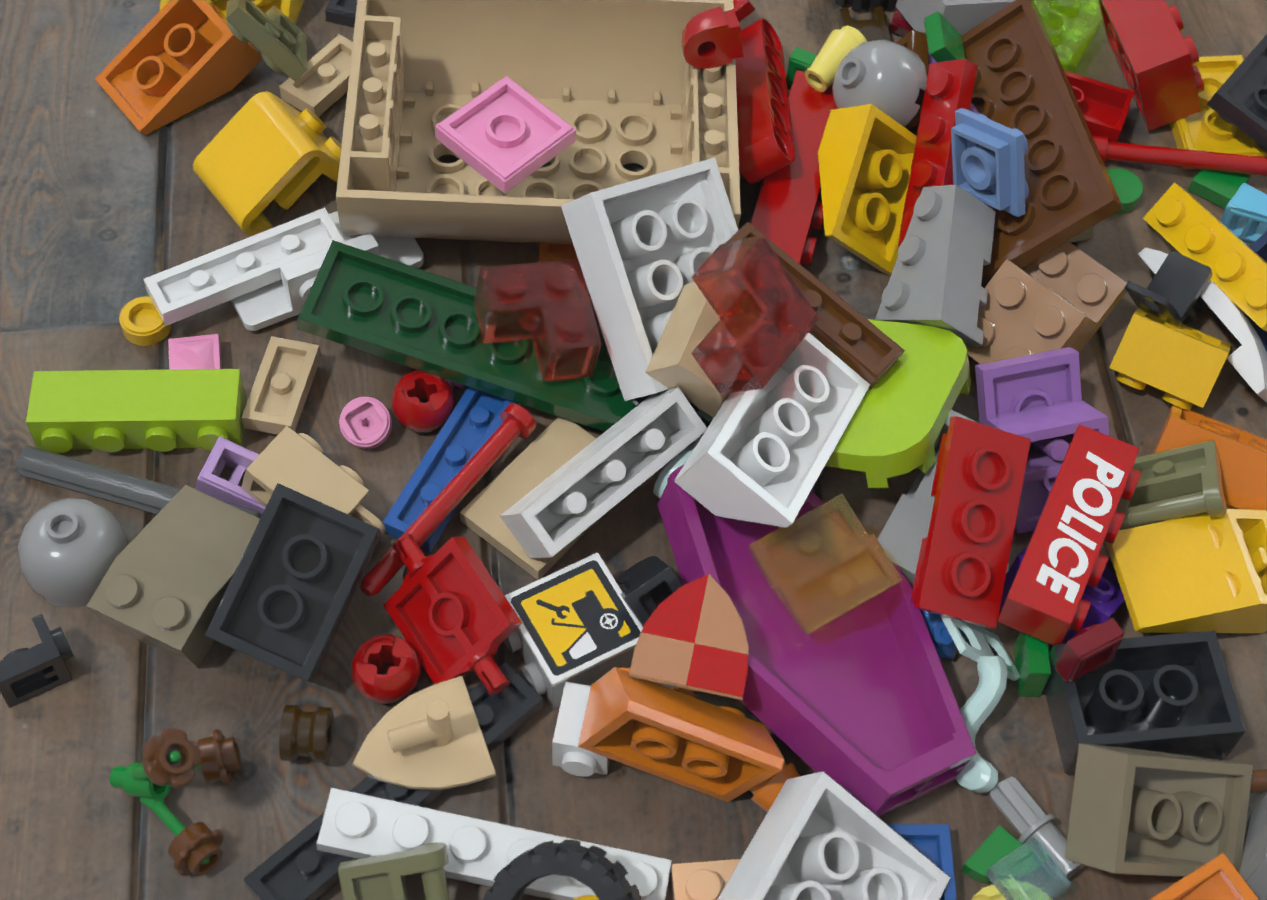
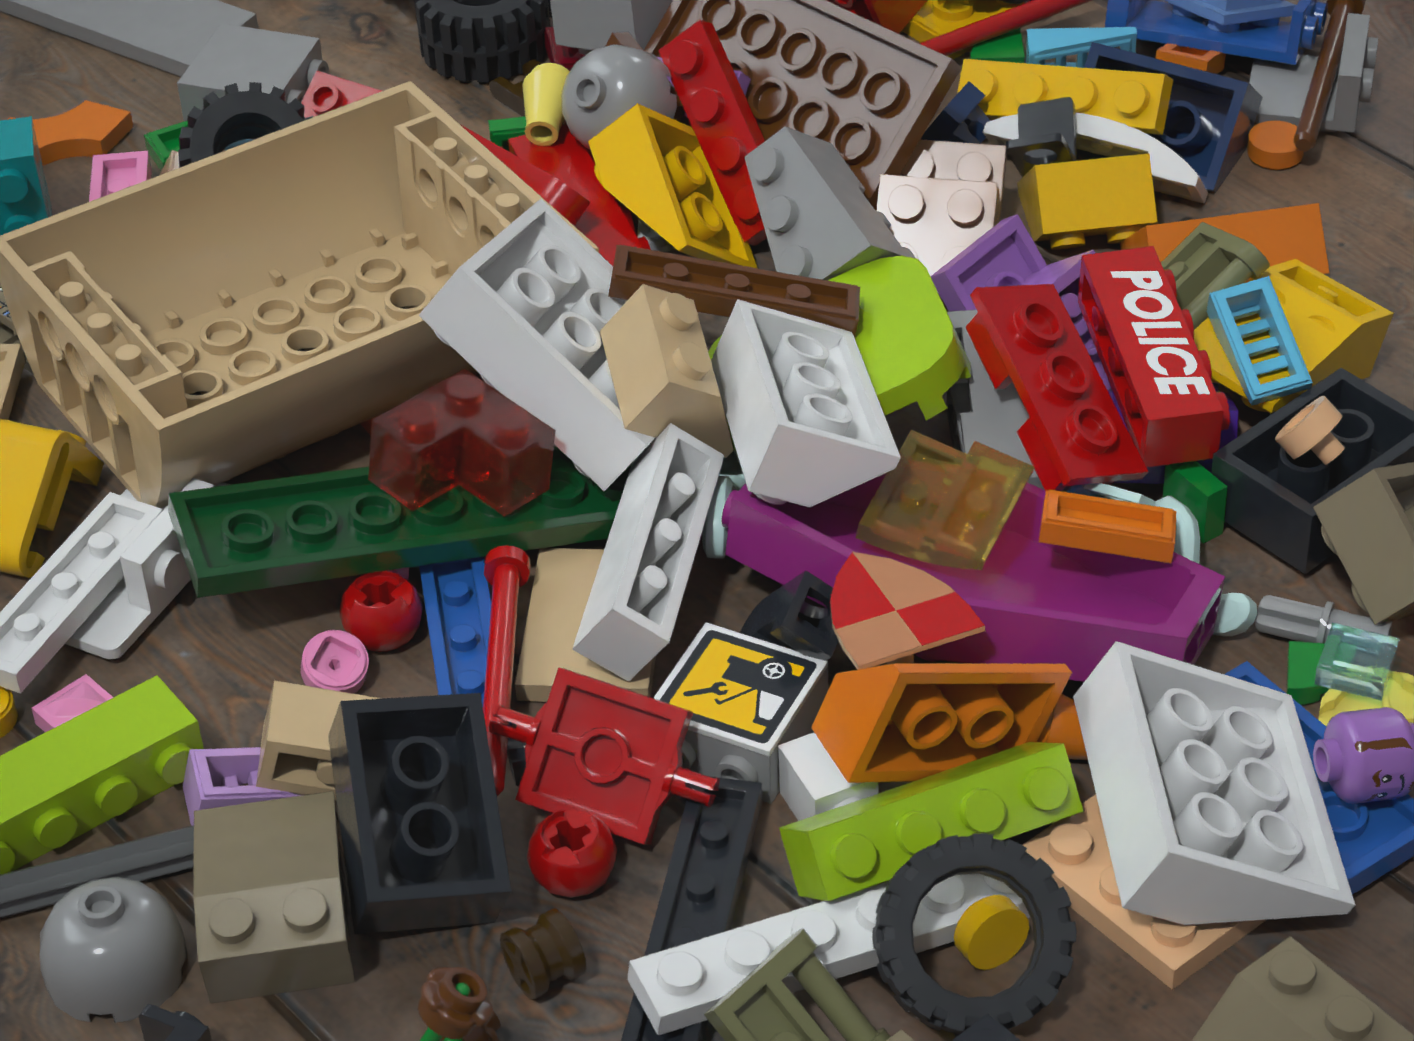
camera: 30 degrees left, 15 degrees down
(281, 385) = (208, 680): tan plate -> none
(428, 741) = (682, 879): tan shield -> none
(505, 134) = (291, 291): bright pink tile -> none
(618, 808) = (879, 834): none -> lime brick
(712, 39) = (433, 112): red piece -> none
(758, 312) = (715, 290): clear red brick -> none
(923, 658) = (1108, 526): none -> orange tile
(943, 39) = (645, 26): green tile -> none
(990, 161) = (812, 74): medium blue piece -> none
(1089, 650) = (1254, 428): dark red tile -> none
(1131, 678) = (1312, 431): none -> light nougat tile
(1139, 226) = (961, 119): none -> dark blue tile
(1174, 531) = (1246, 300): none -> medium azure slope

